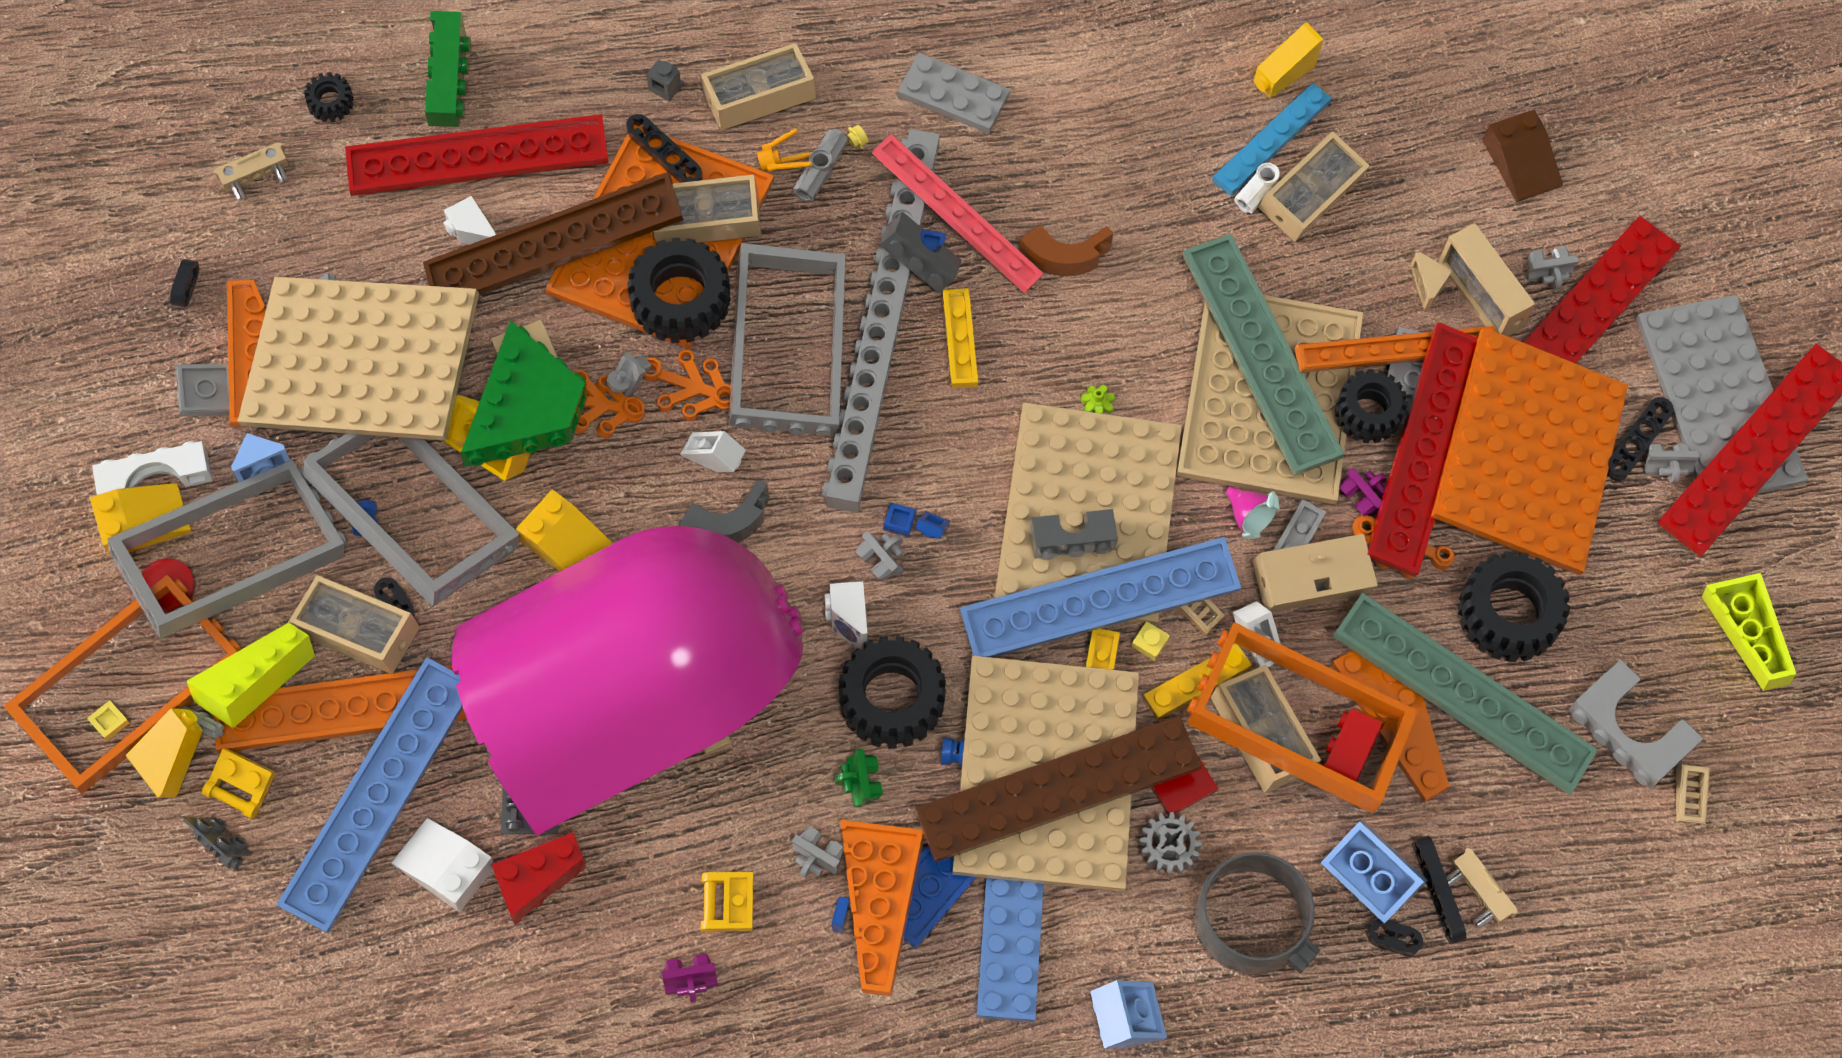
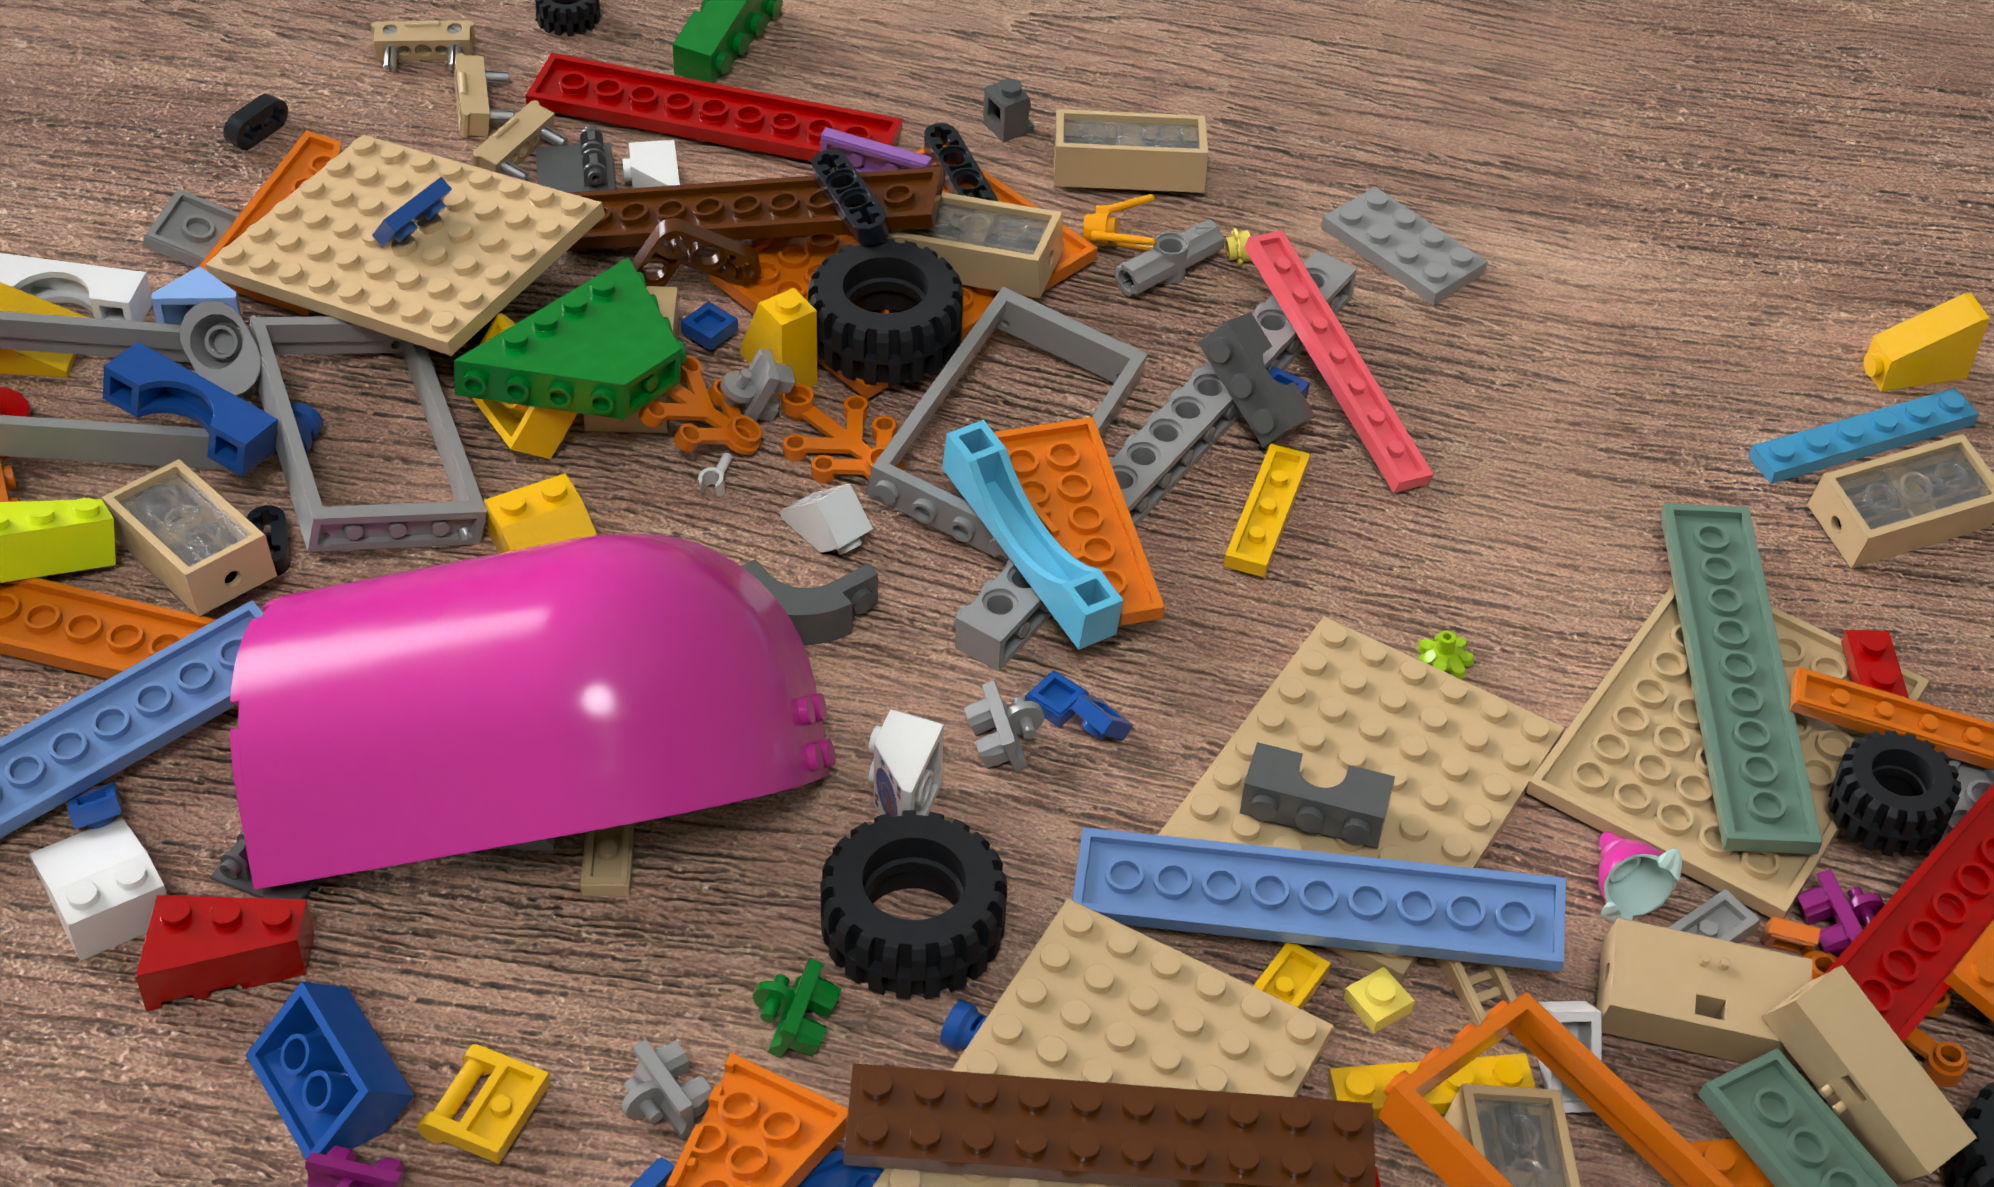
camera: 25 degrees right, 20 degrees down
(274, 534) = (151, 384): none -> blue arch
(299, 490) = (220, 346): none -> light grey piece
(312, 202) = (472, 95): none -> tan piece
(363, 232) = (517, 140): none -> tan piece
(366, 336) = (402, 222): none -> blue plate
(412, 819) = (95, 807): none -> blue plate
(413, 236) = (577, 166): none -> dark grey hinge
(537, 291) = (674, 254): none -> reddish brown beam
(568, 333) = (709, 325): none -> blue plate
(608, 164) = (872, 155): none -> medium lavender tile
(622, 217) = (853, 194): none -> black beam
(625, 333) = (789, 330): none -> yellow slope
(630, 442) = (715, 475): none -> white hand
(638, 921) = (328, 1070): none -> blue slope
(809, 403) = (1072, 591): none -> medium azure arch
(850, 383) = (1083, 508): none -> orange wing
(1063, 258) = (1478, 468): dark orange arch -> none
(1256, 188) = (1797, 486): white piece -> none
(1332, 317) = (1873, 660): none -> red plate
(1344, 514) = (1790, 936): none -> orange tile
(1413, 596) = (1869, 1076): none -> tan brick

